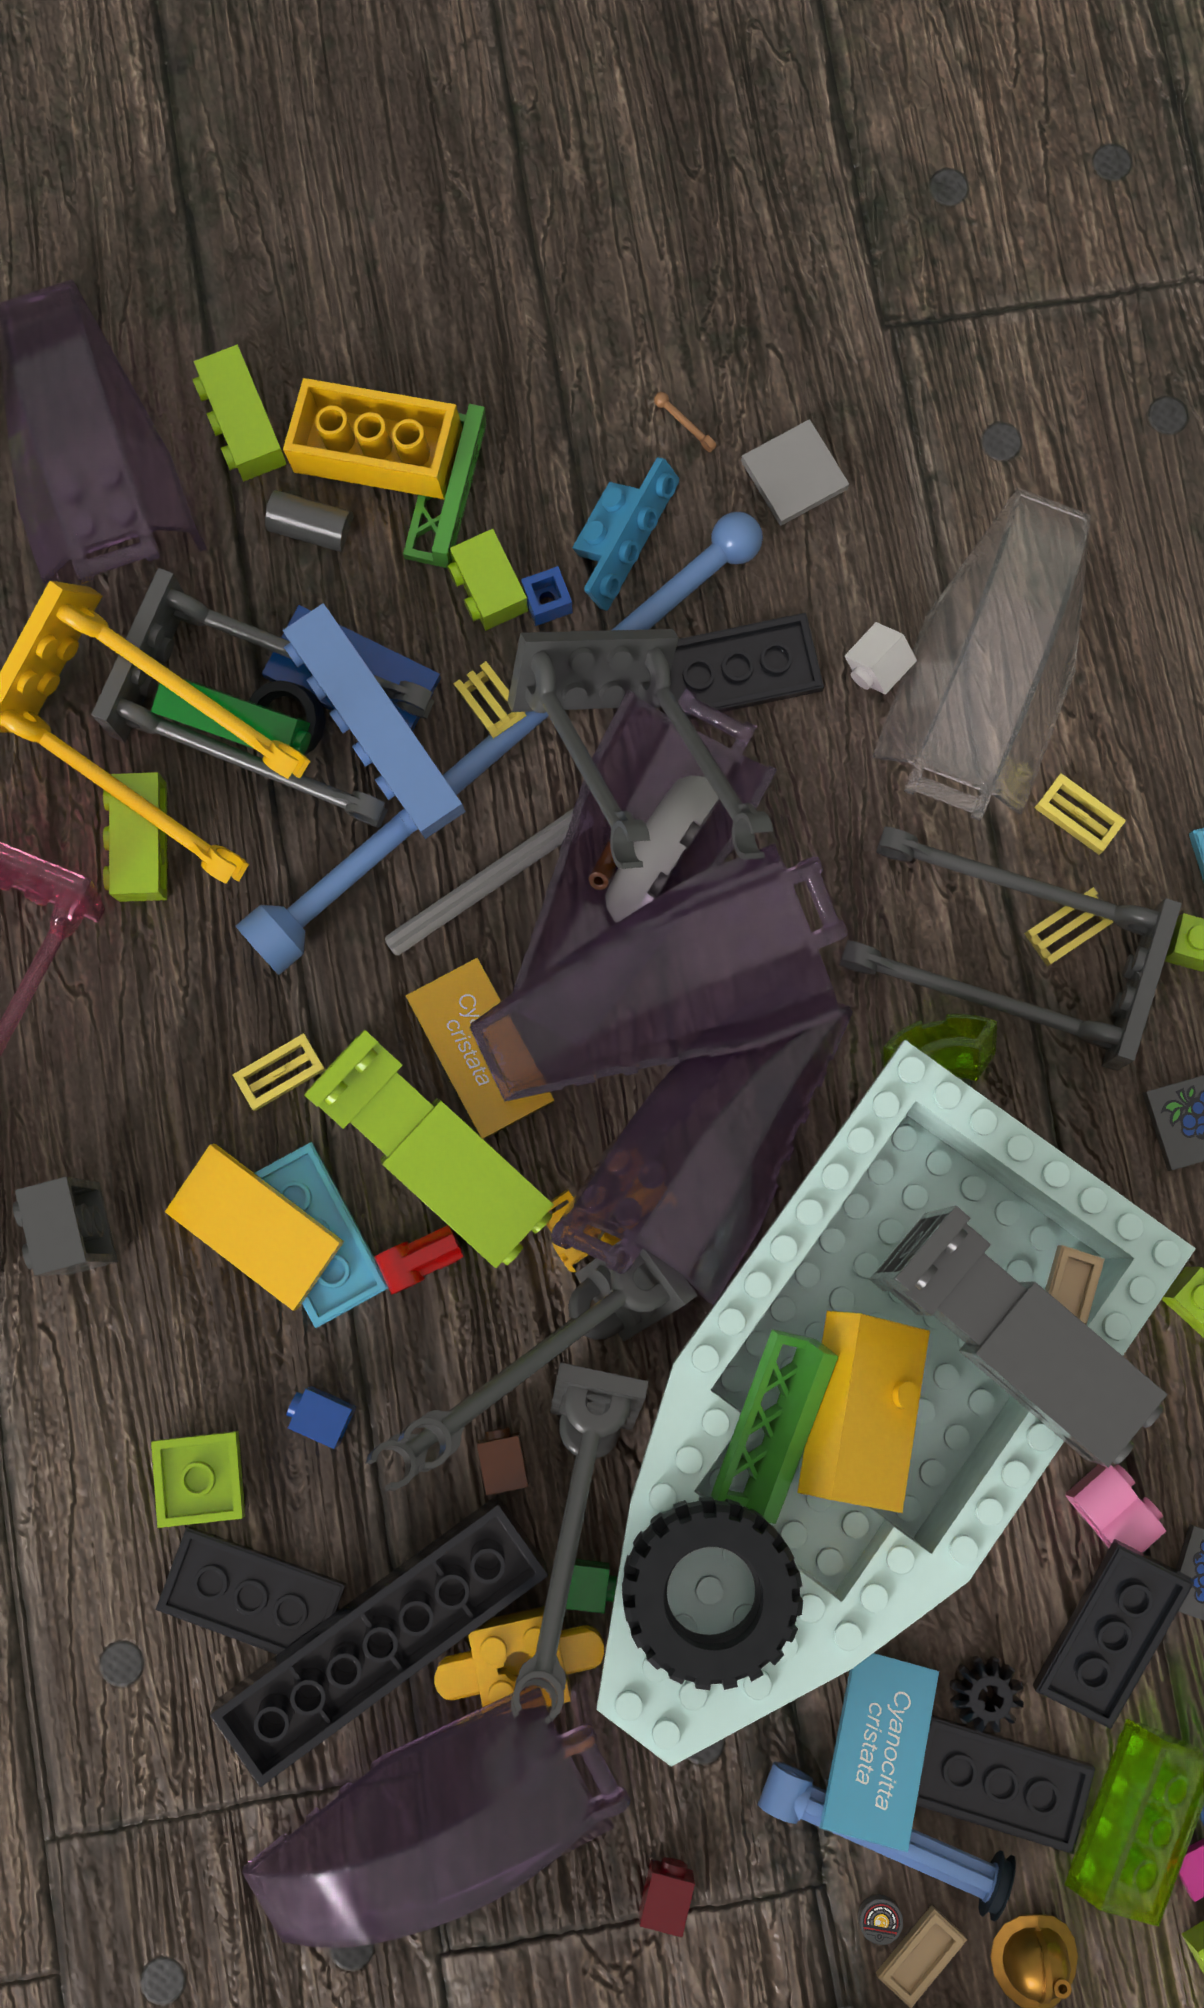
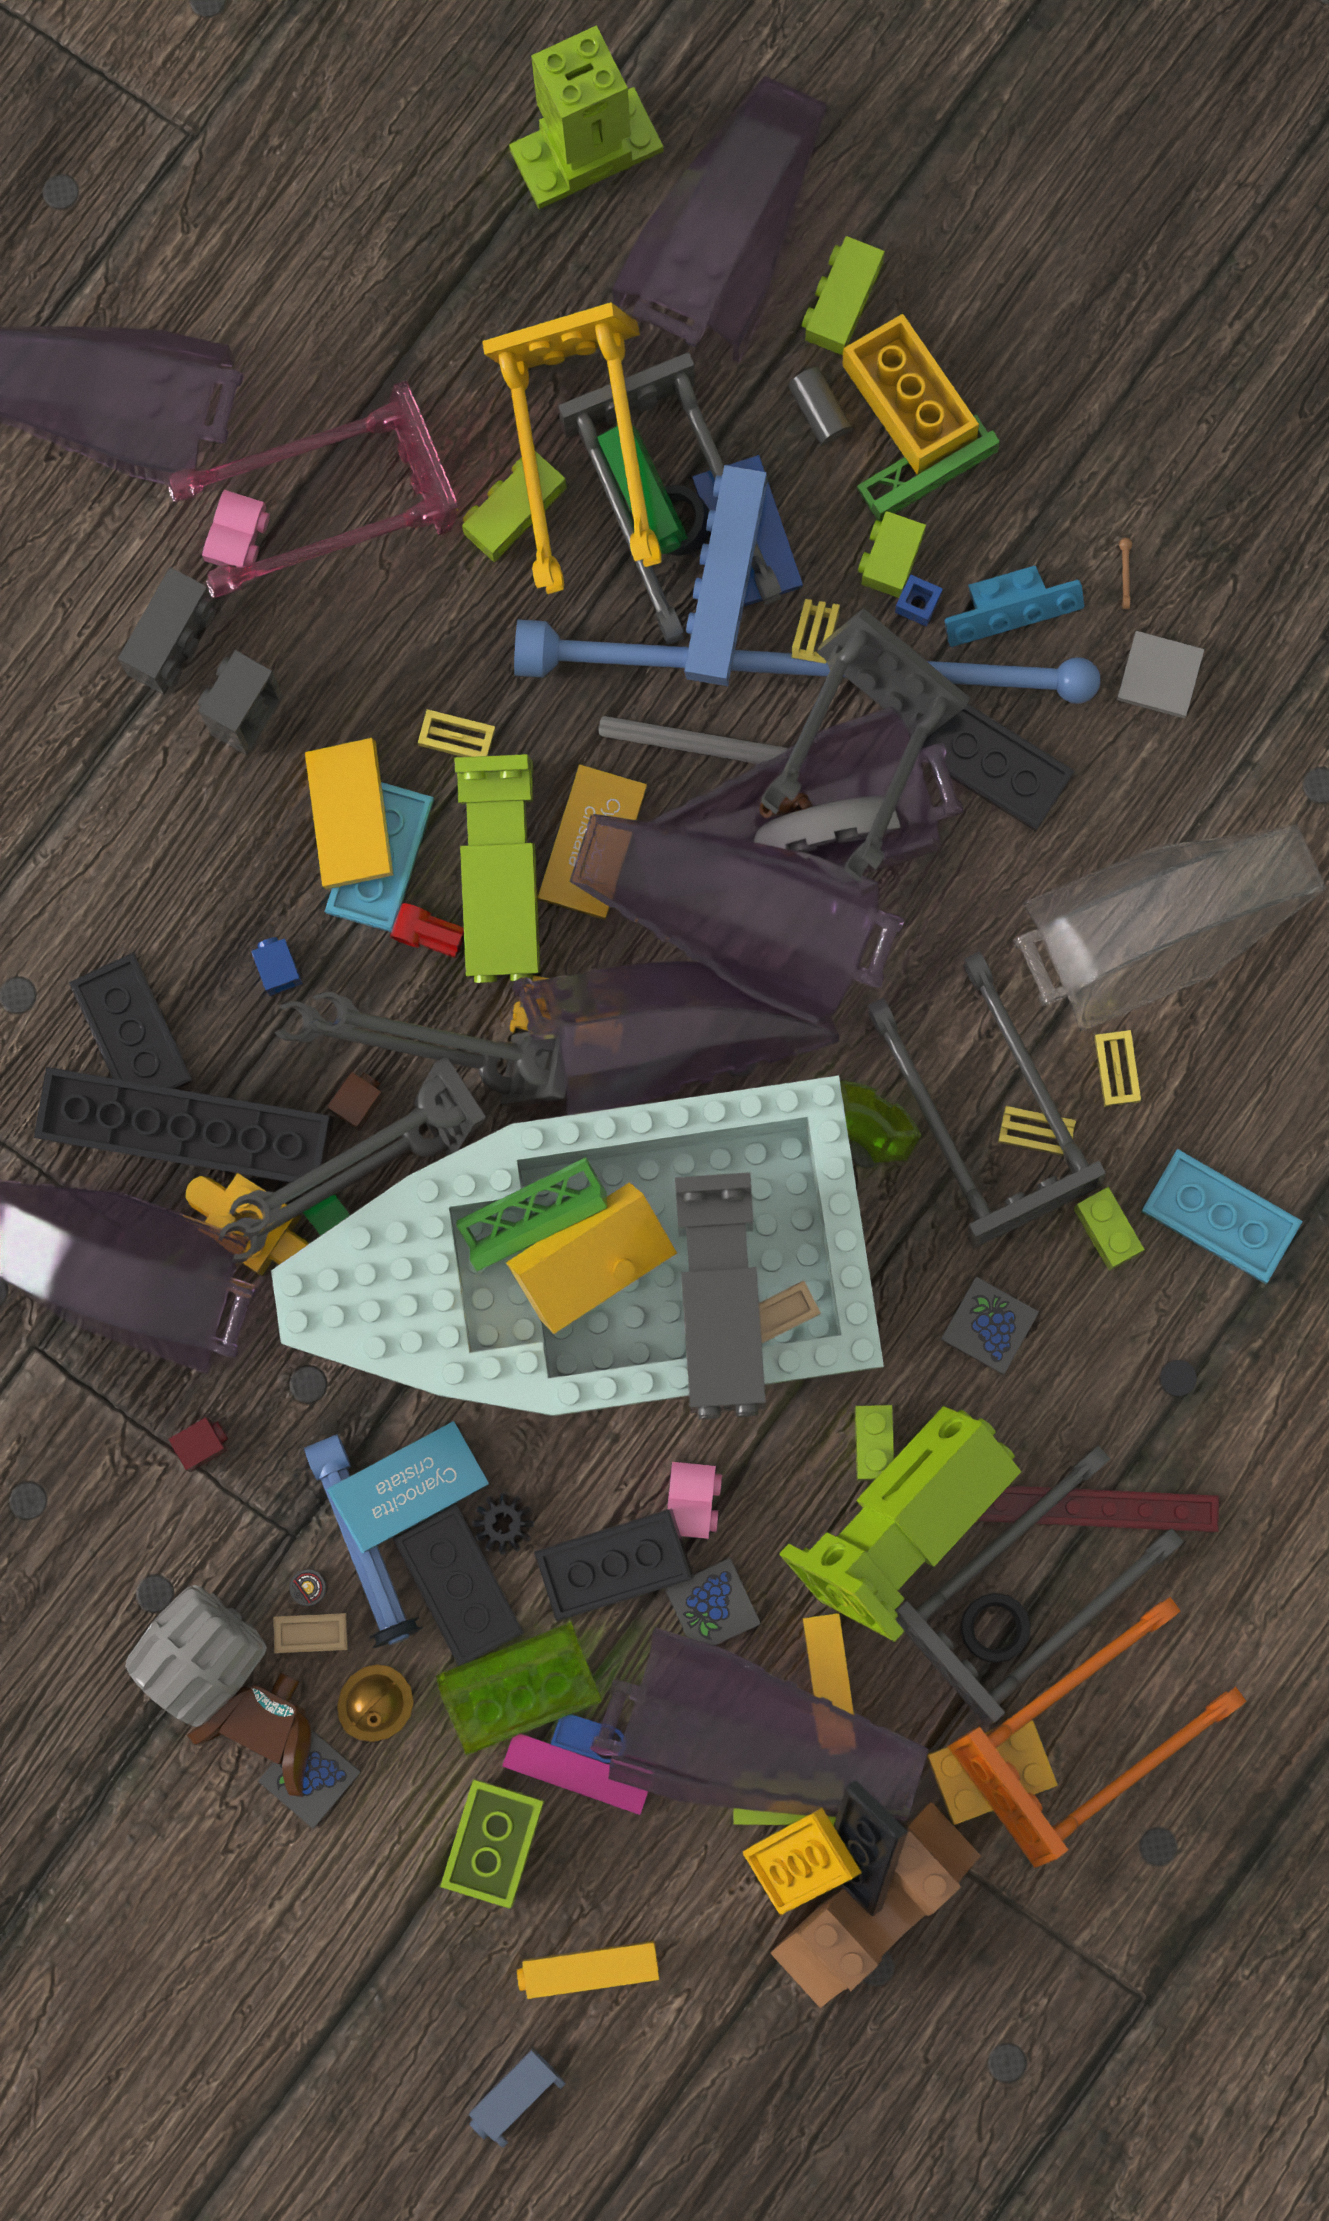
camera: 55 degrees right, 0 degrees up
(198, 1479) = (168, 930): lime plate -> none
(725, 1655) = (385, 1212): black tyre -> none
(880, 658) = (1087, 845): white brick -> none

